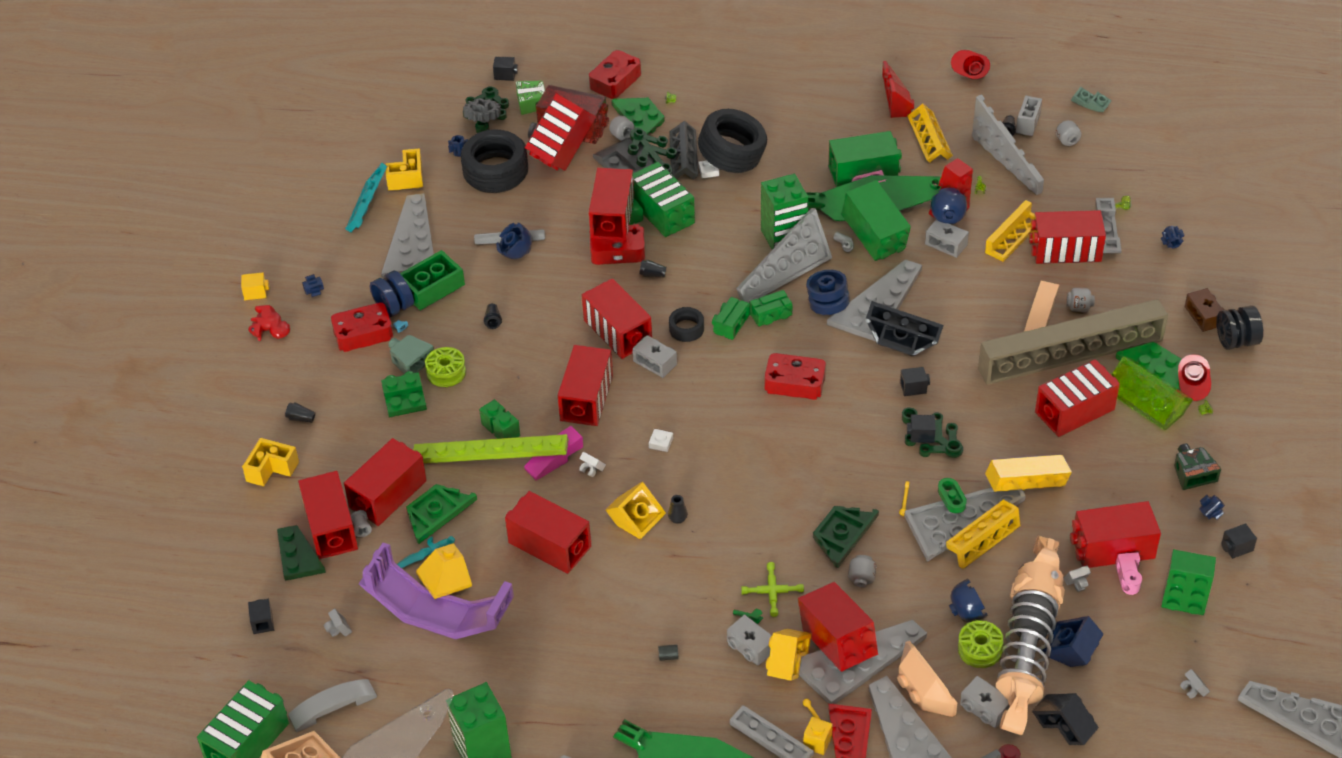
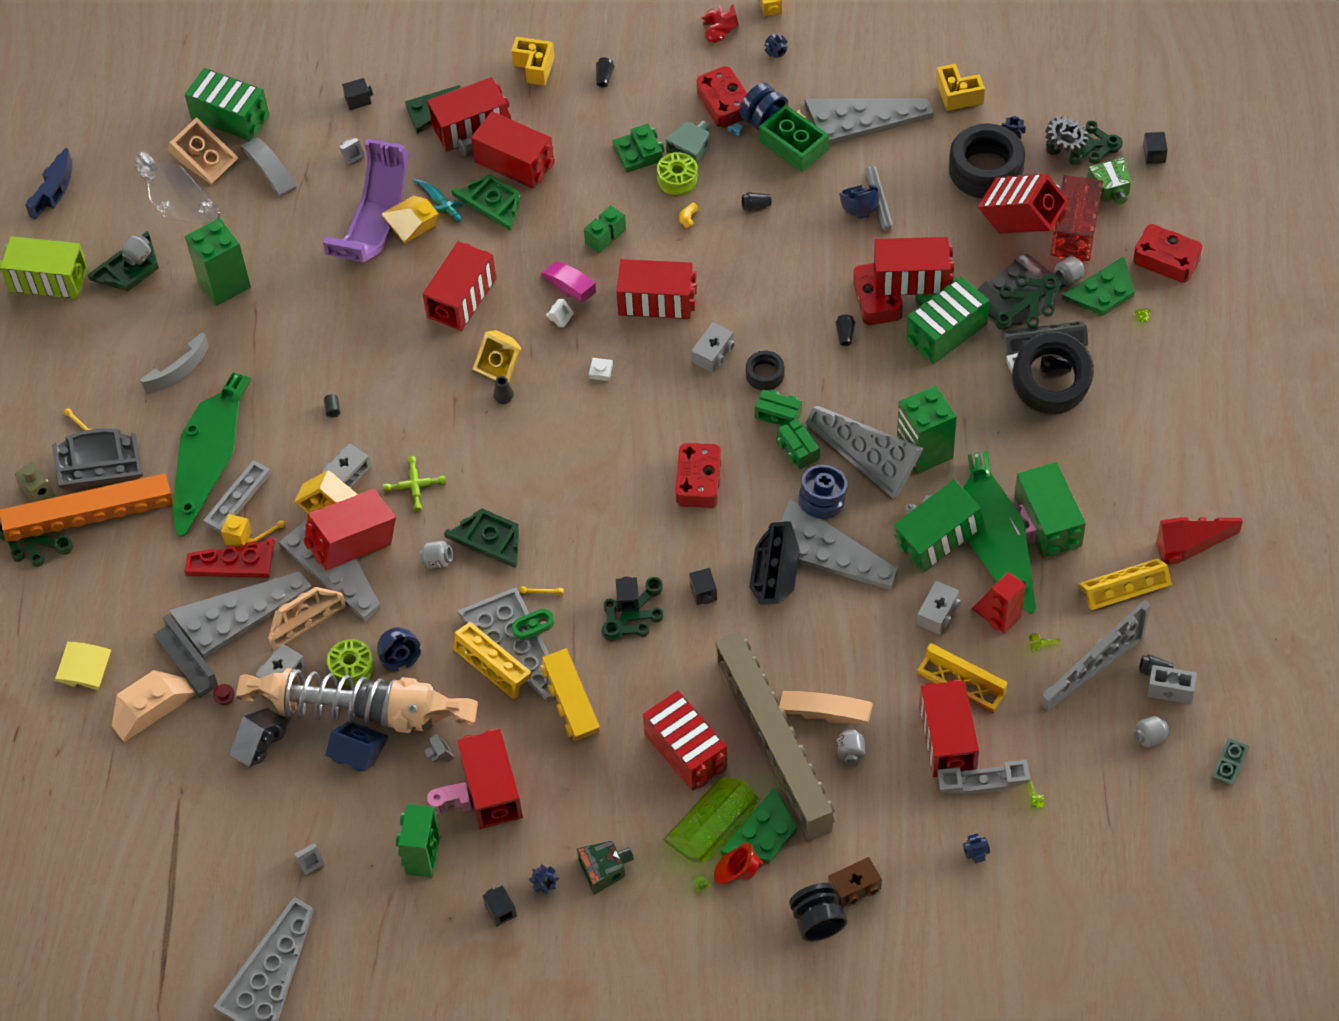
camera: 85 degrees right, 10 degrees up
(365, 198) = (880, 62): teal wing -> none
(493, 448) = (565, 226): lime plate -> none
(495, 366) = (686, 213): none -> yellow arm
(616, 317) = (755, 302): red brick -> none
(754, 616) = (379, 471): green hand -> none
(949, 206) = (968, 596): dark blue cylinder -> none
(970, 64) = (1258, 616): red piece -> none

